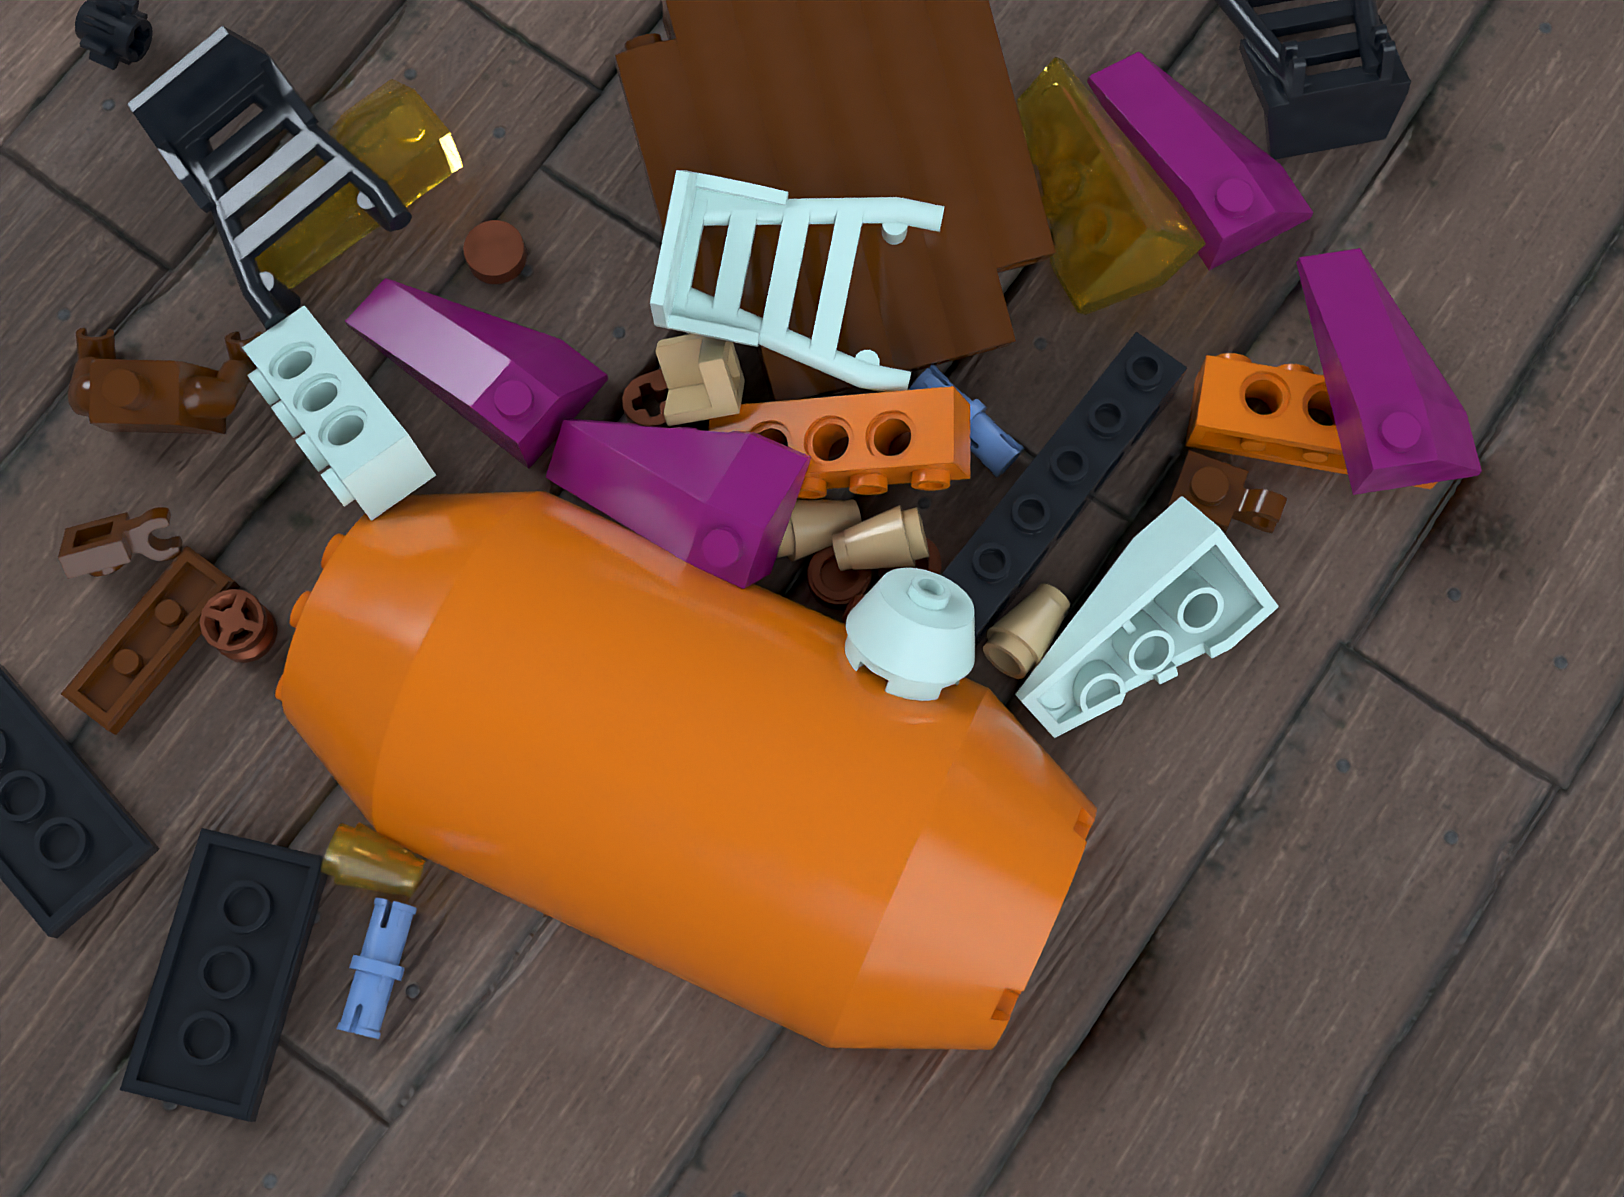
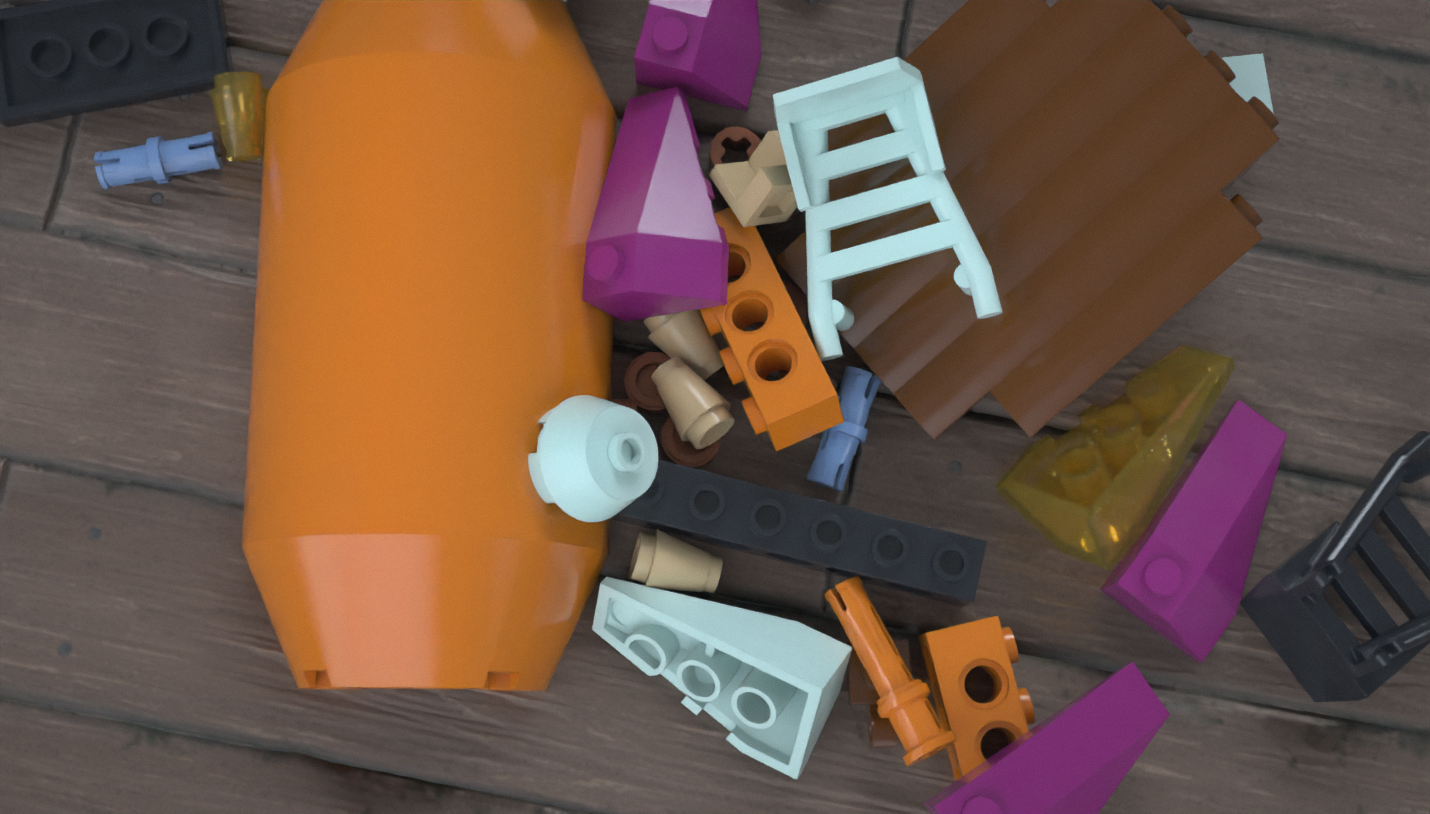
camera: 60 degrees right, 5 degrees up
(1248, 471) = (901, 697): none -> orange pin

